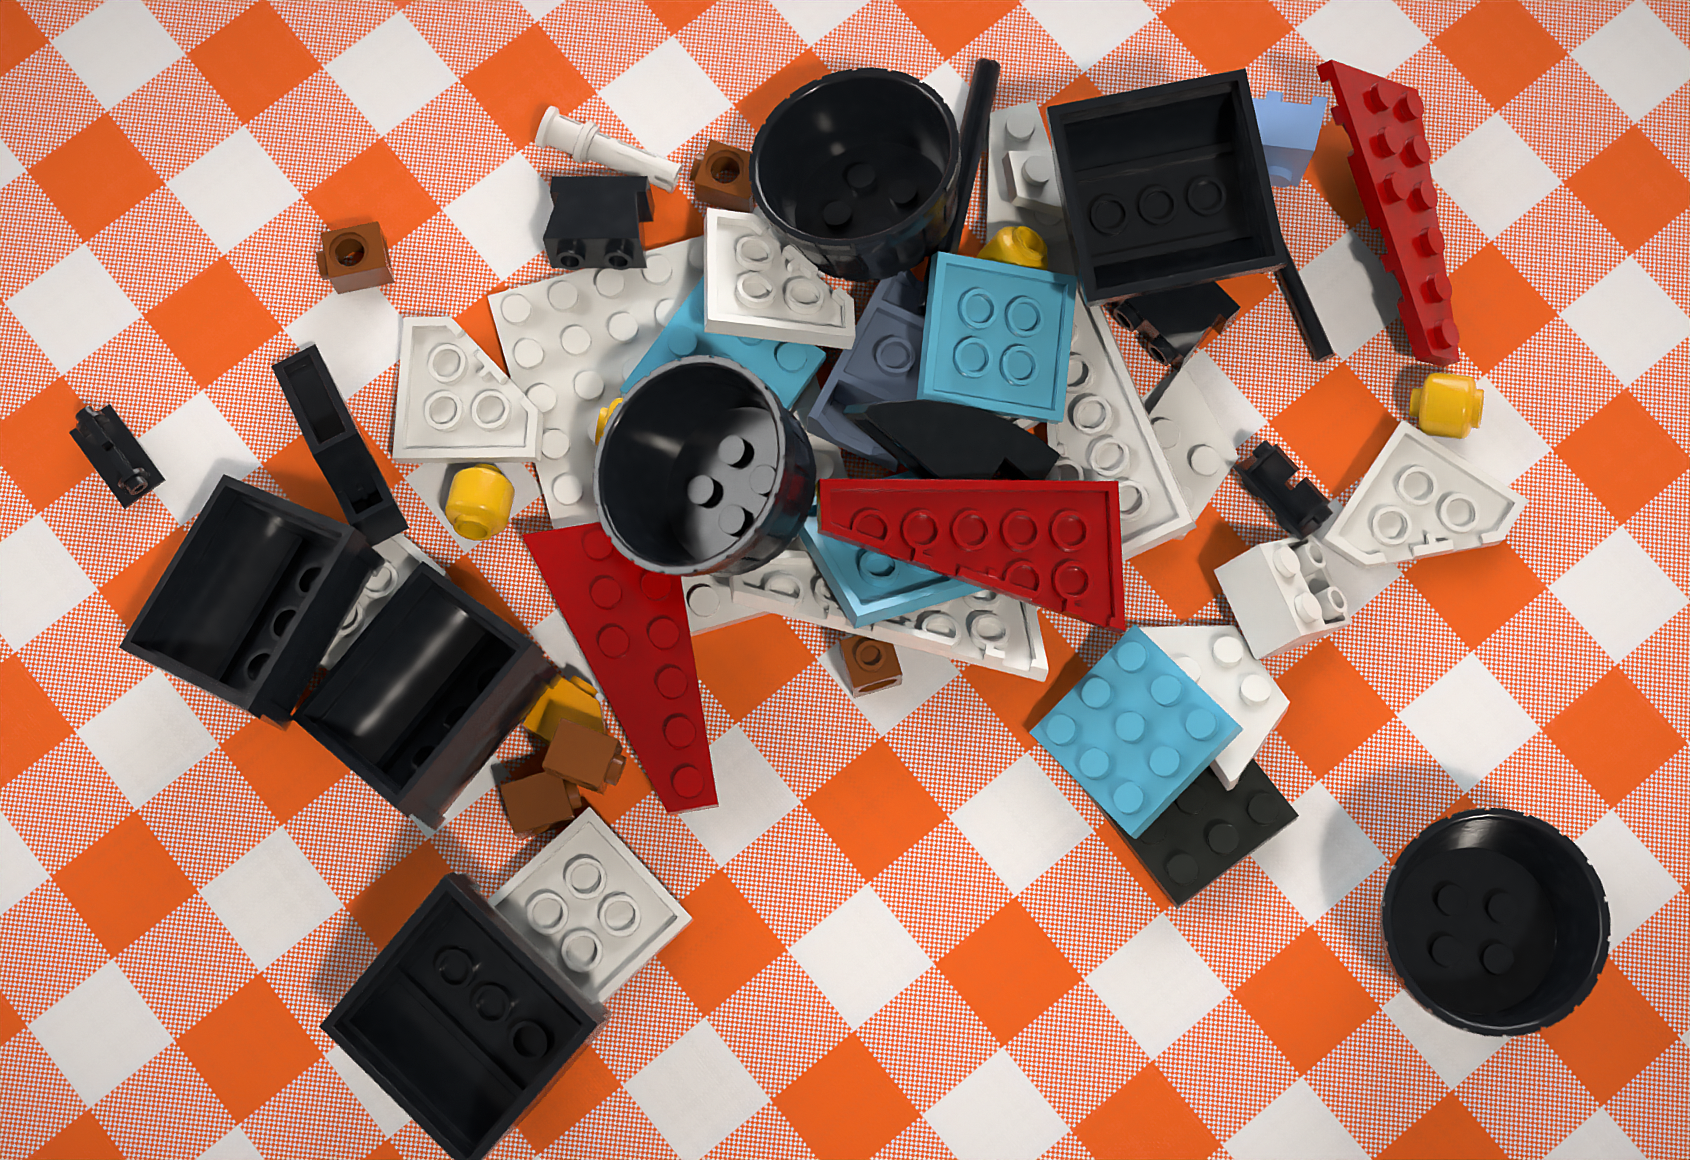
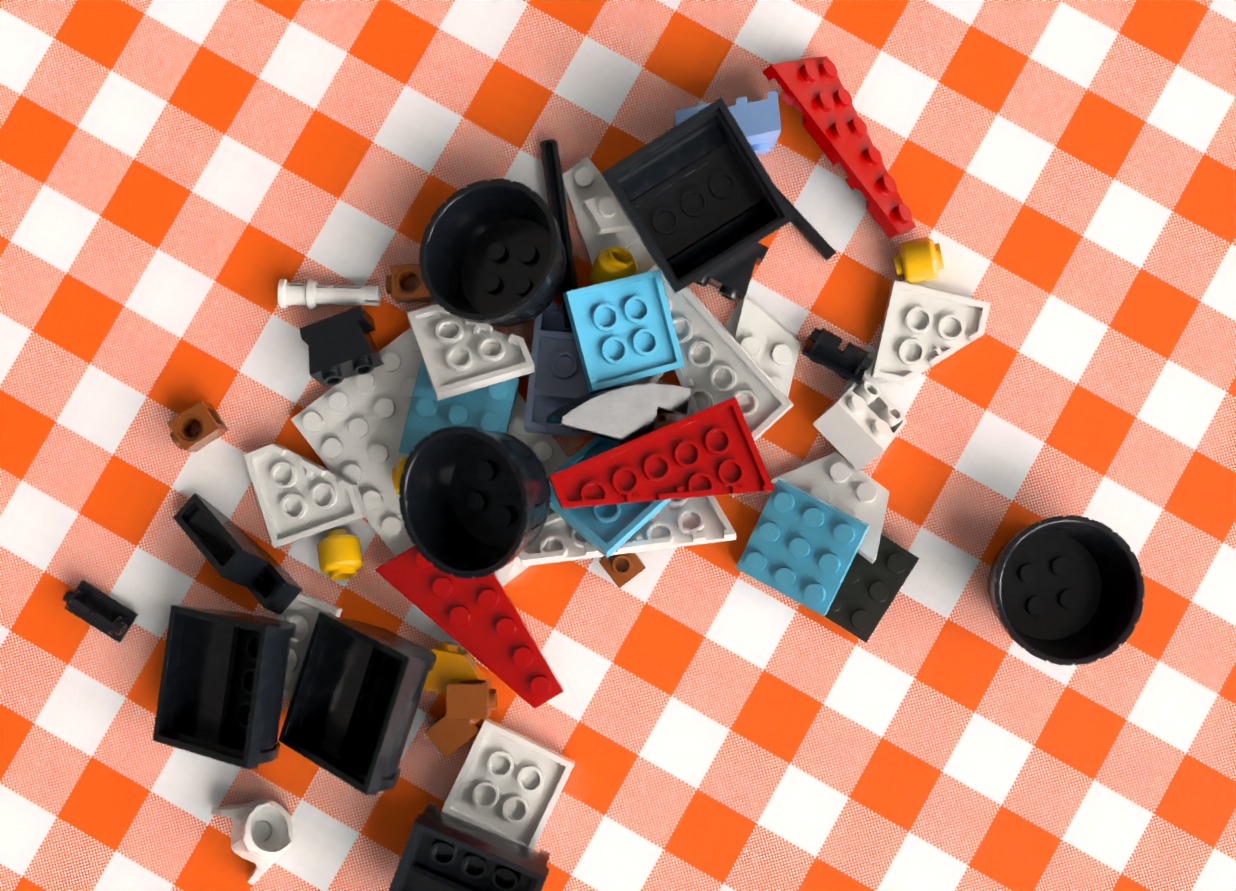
camera: 15 degrees left, 10 degrees up
(207, 839) = (258, 833): none -> white helmet

